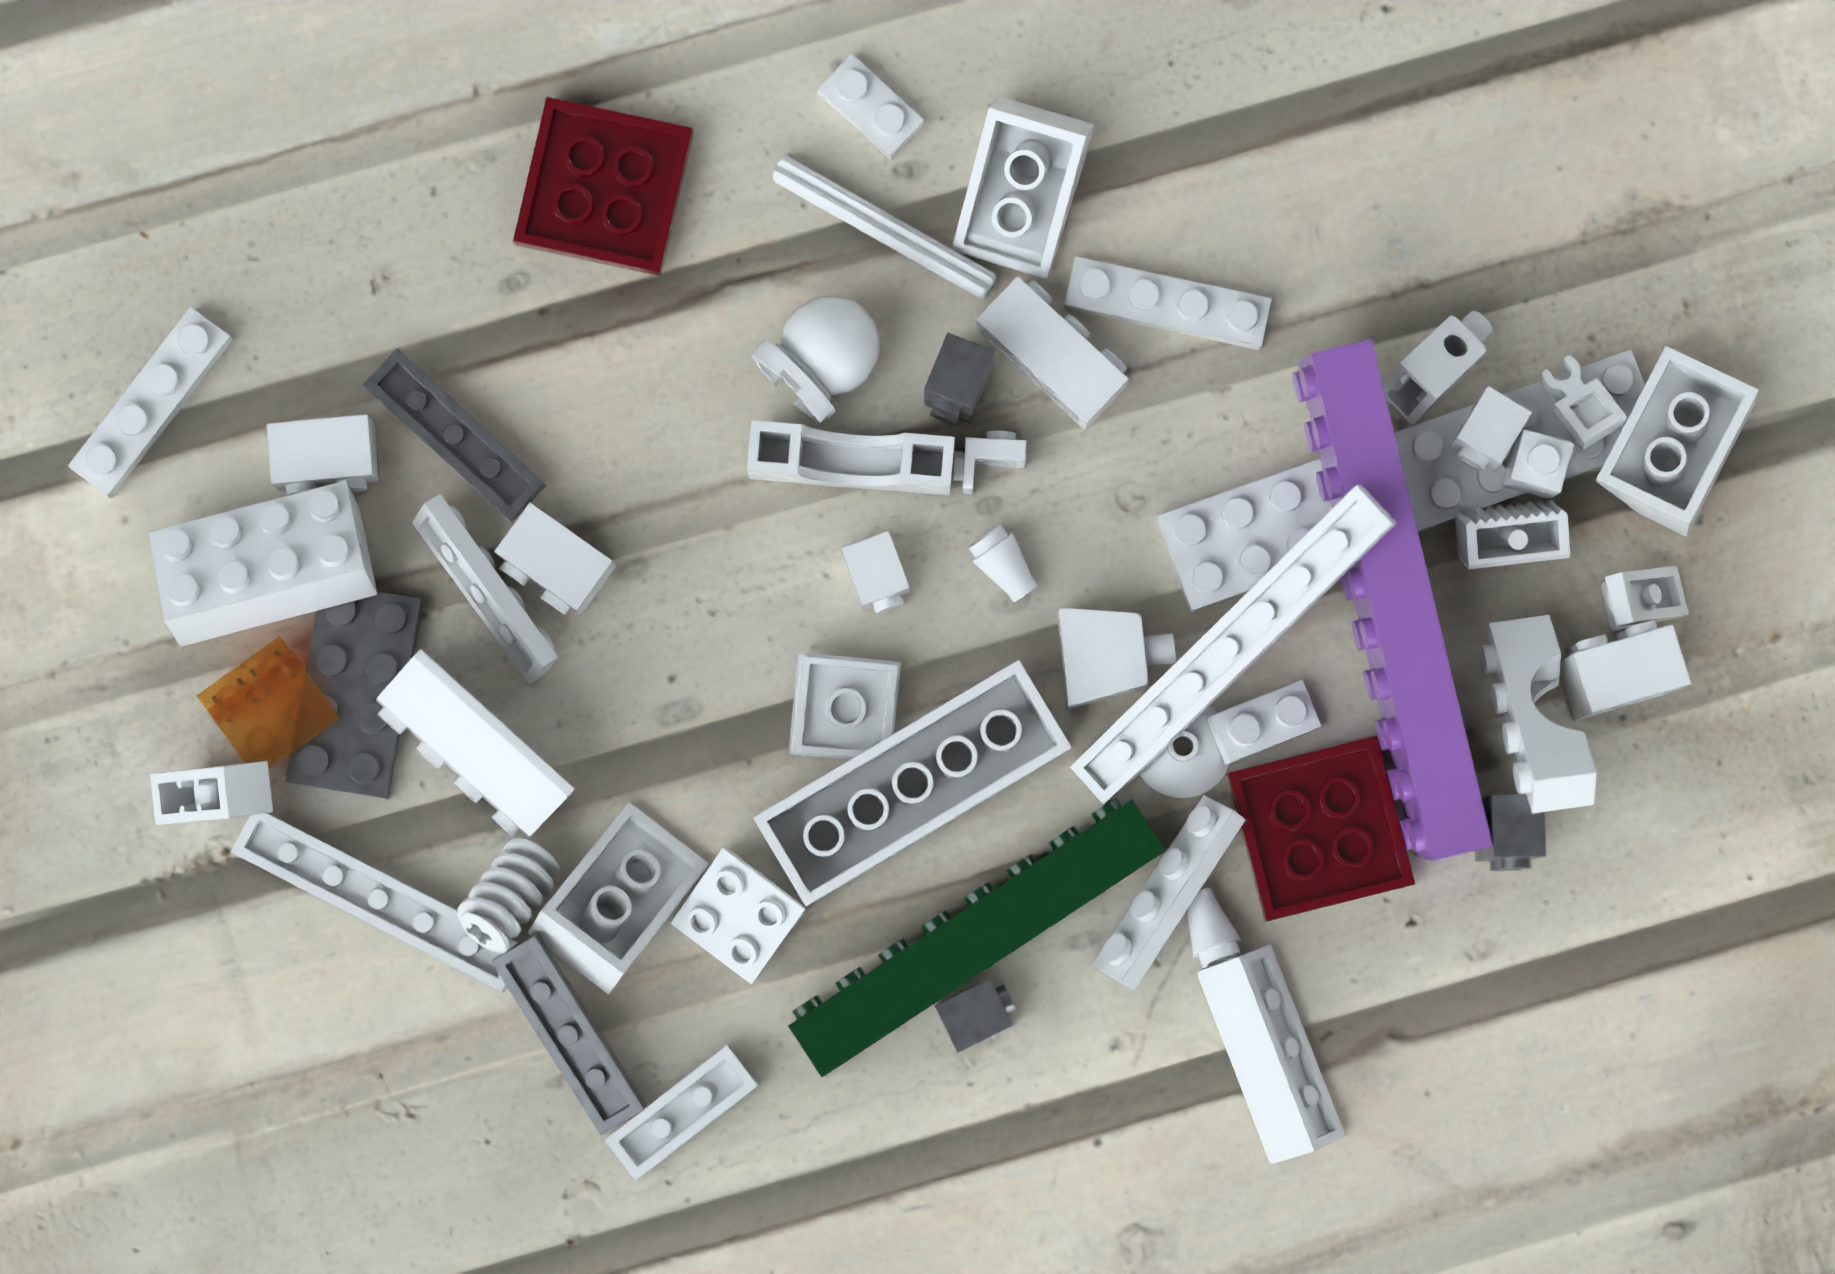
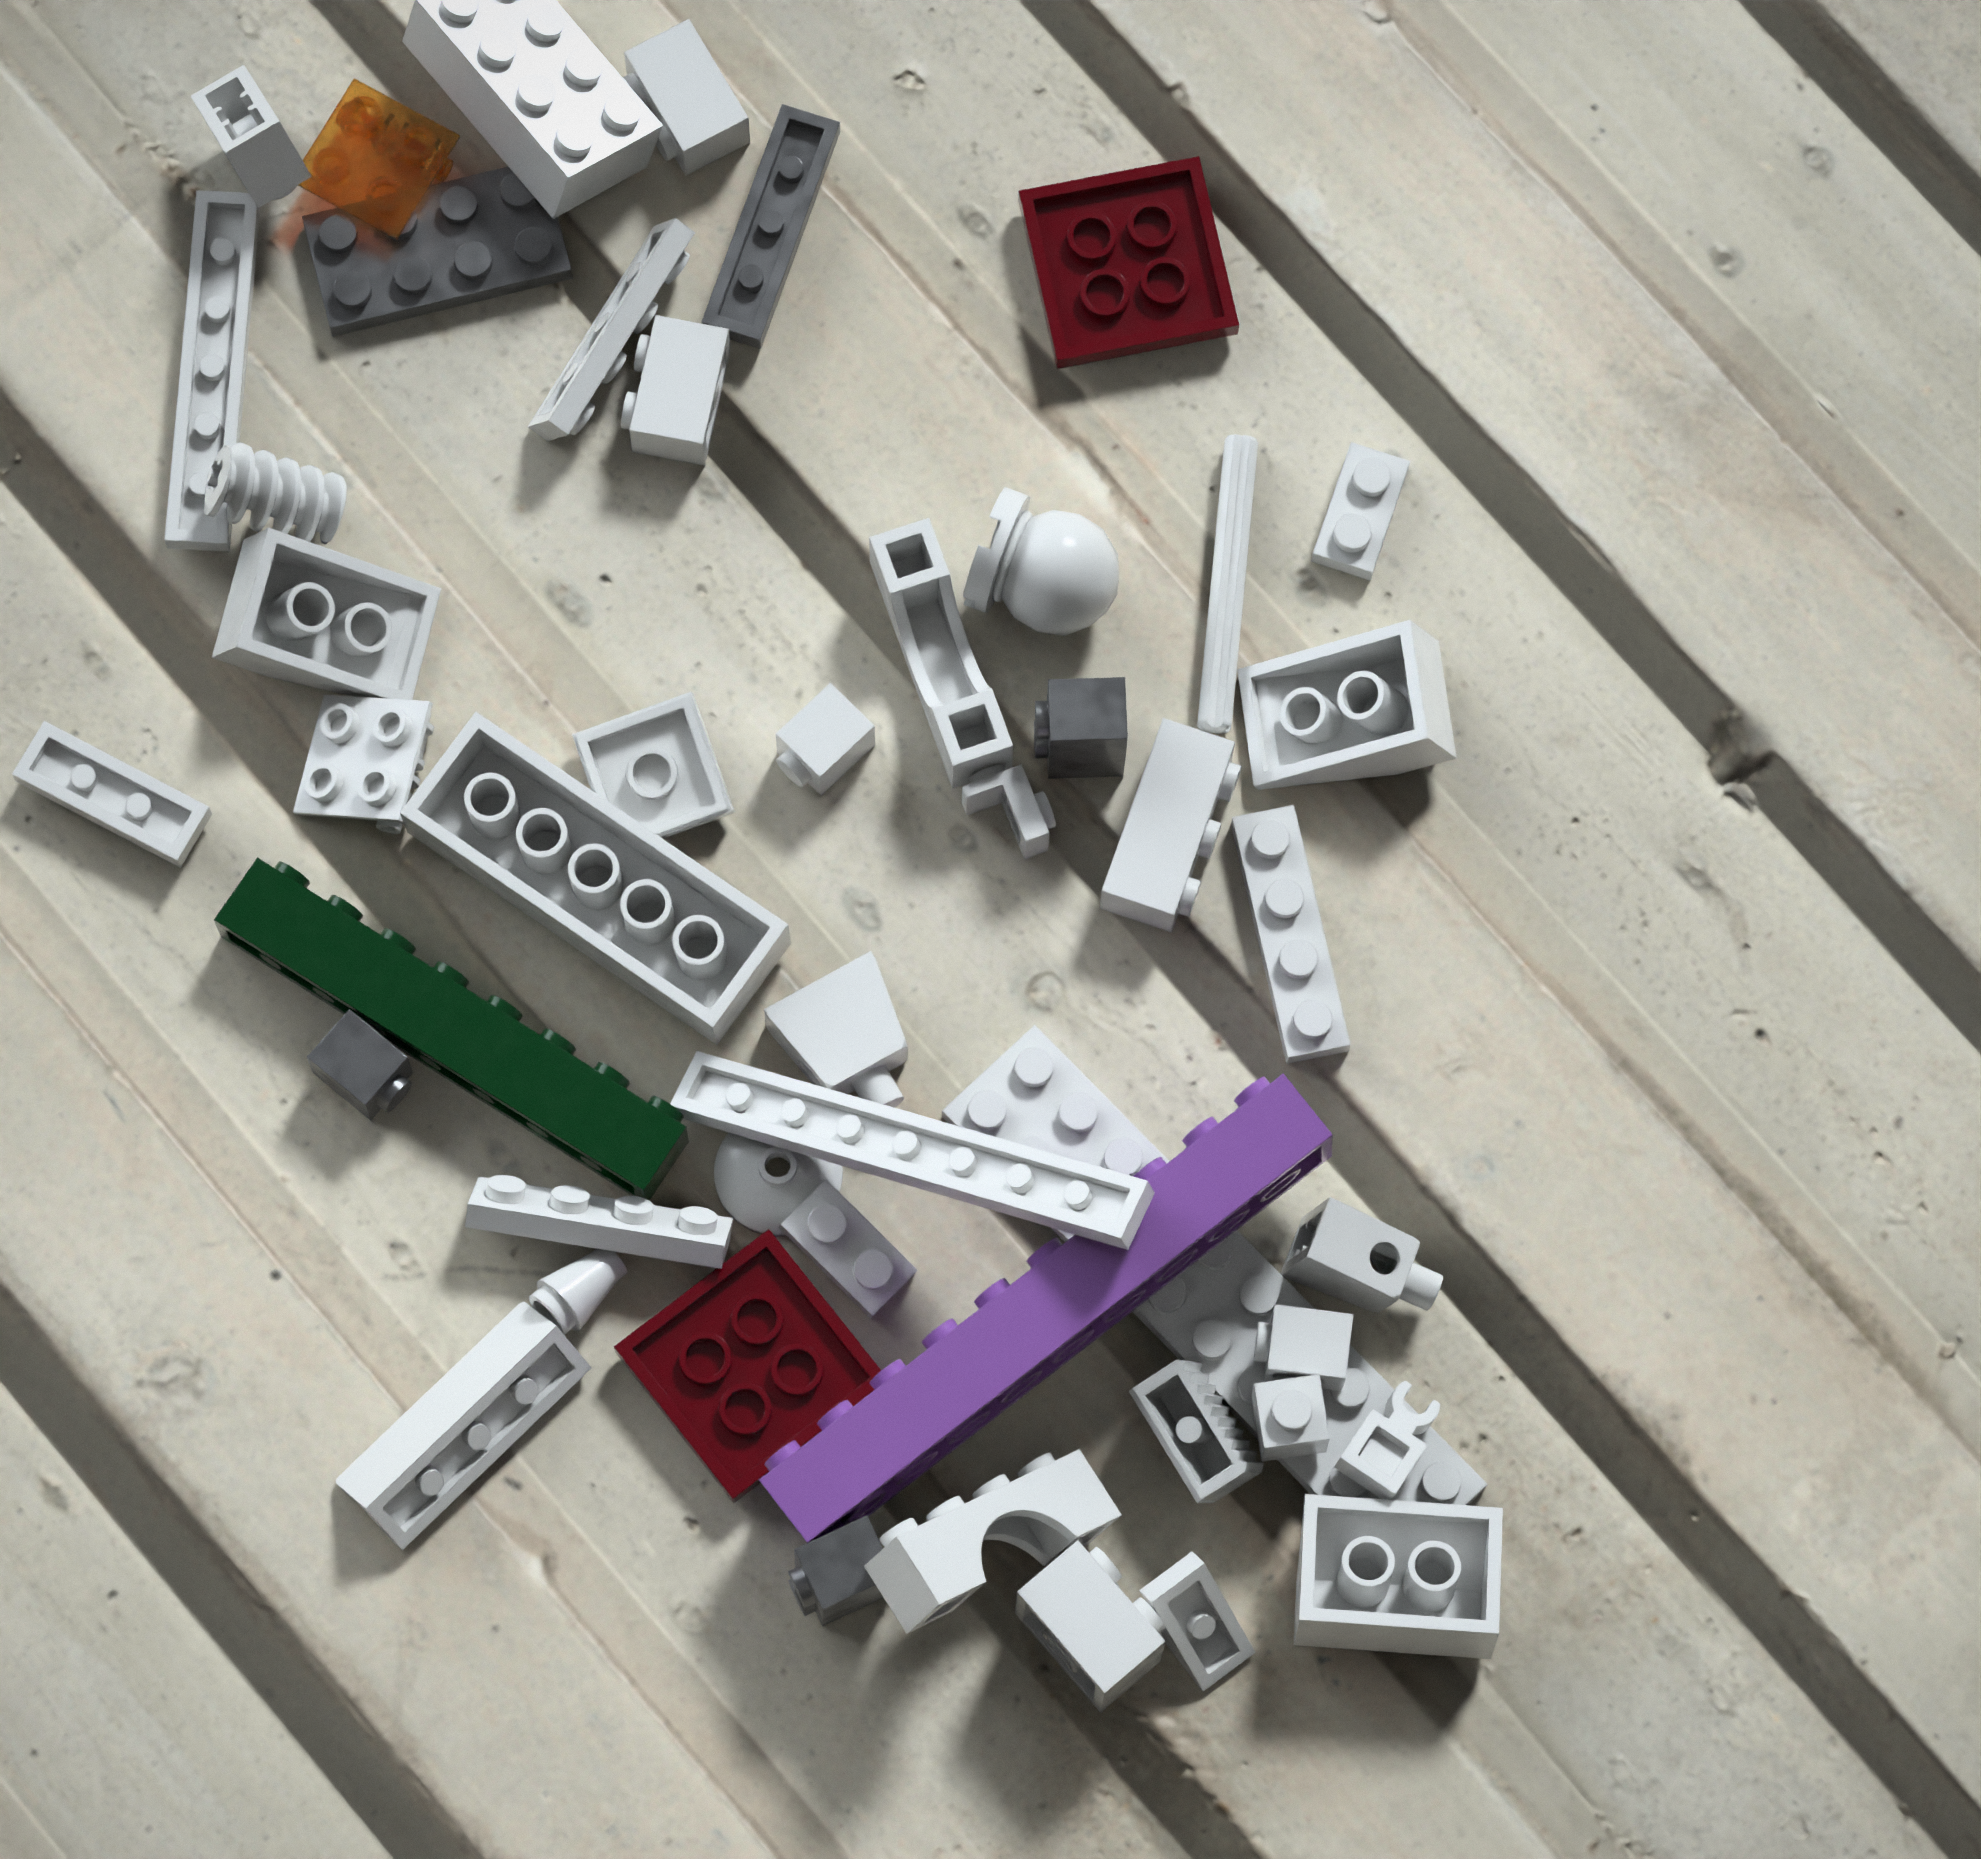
camera: 60 degrees right, 10 degrees down
(473, 744) = (427, 384): white slope -> none
(569, 1033) = (148, 630): flat silver plate -> none
(1003, 562) = (900, 876): white cone -> none

